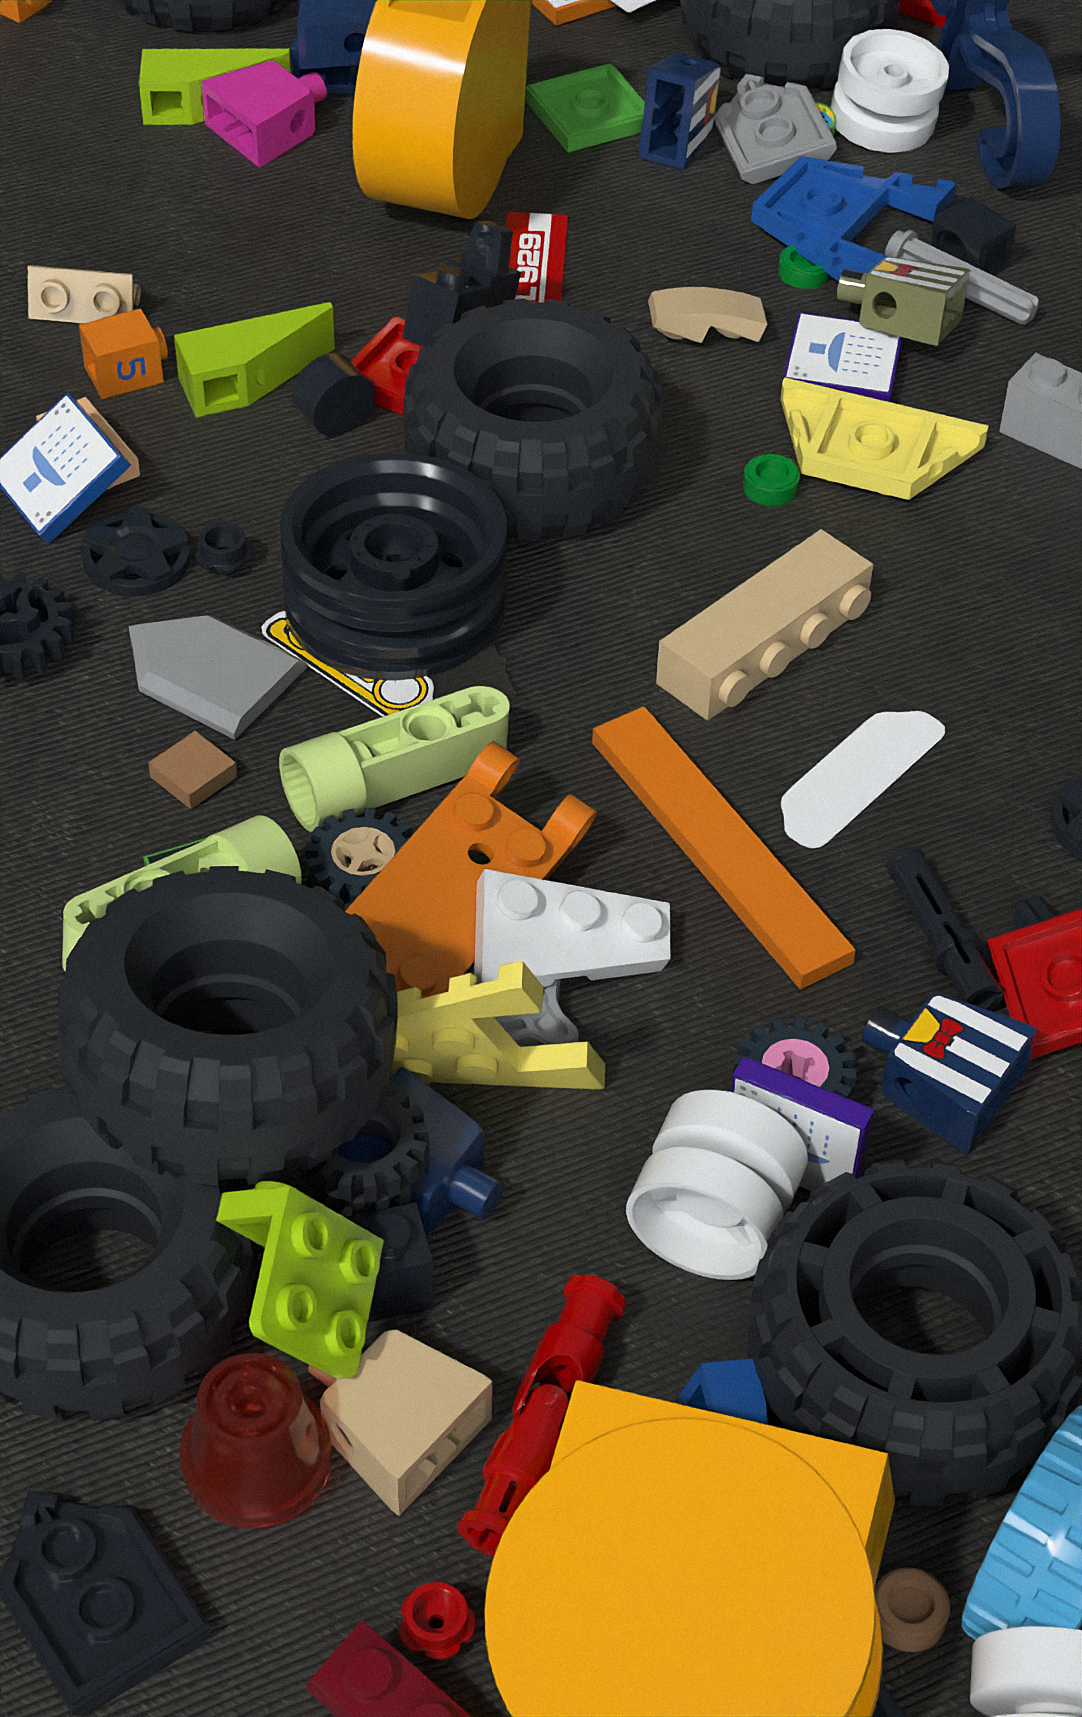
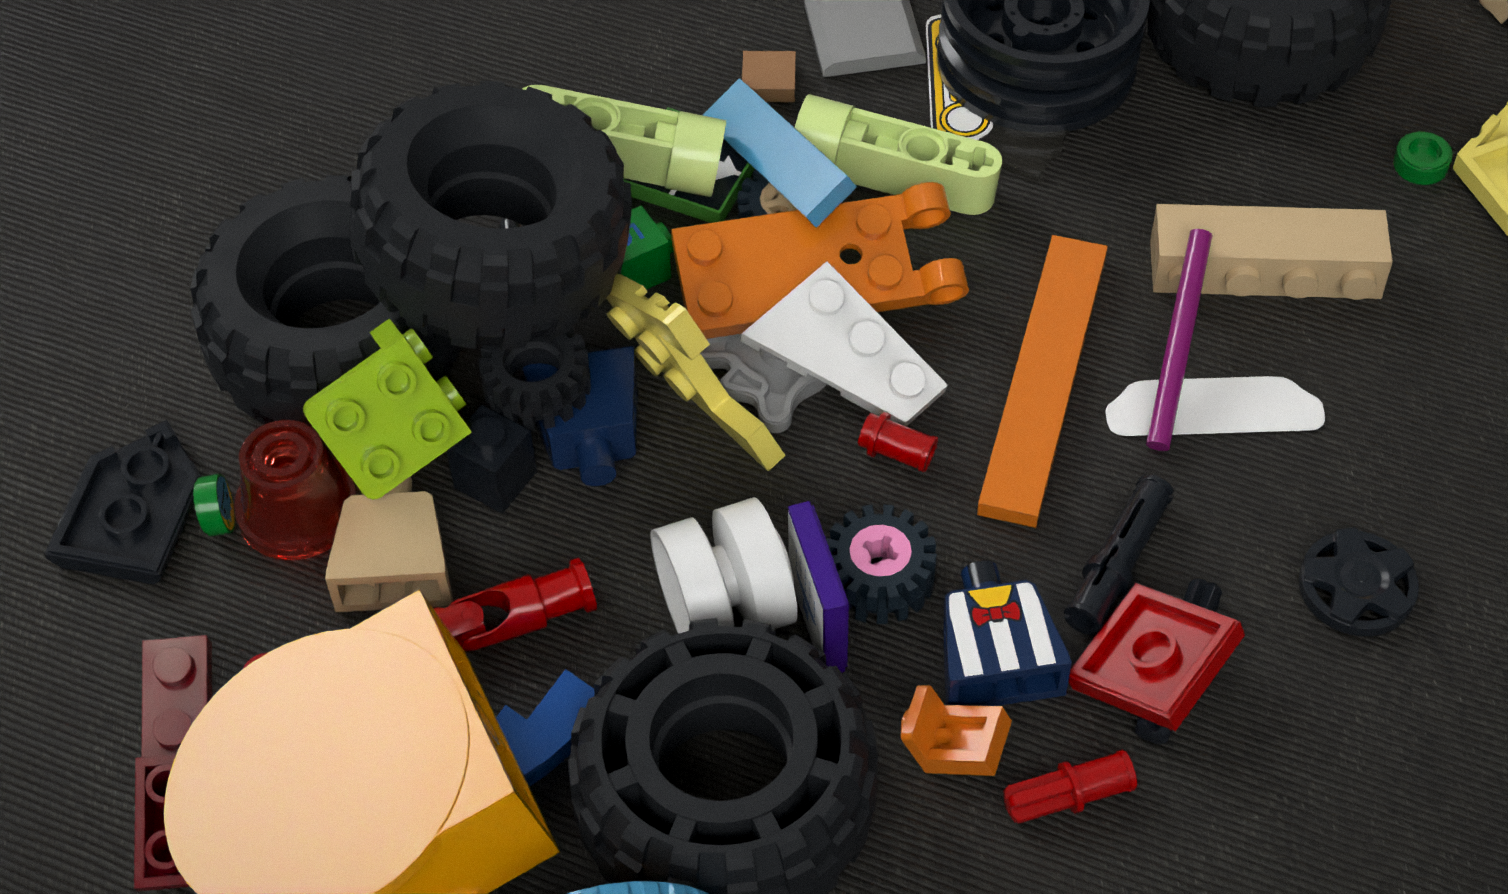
camera: 50 degrees right, 5 degrees up
(184, 1519) = (214, 505): none -> green tile
(332, 810) = (781, 153): none -> dark azure tile
(671, 982) = (897, 441): none -> red pin
(796, 734) = (1179, 340): none -> magenta bar
(1017, 1153) = (954, 736): none -> orange bracket

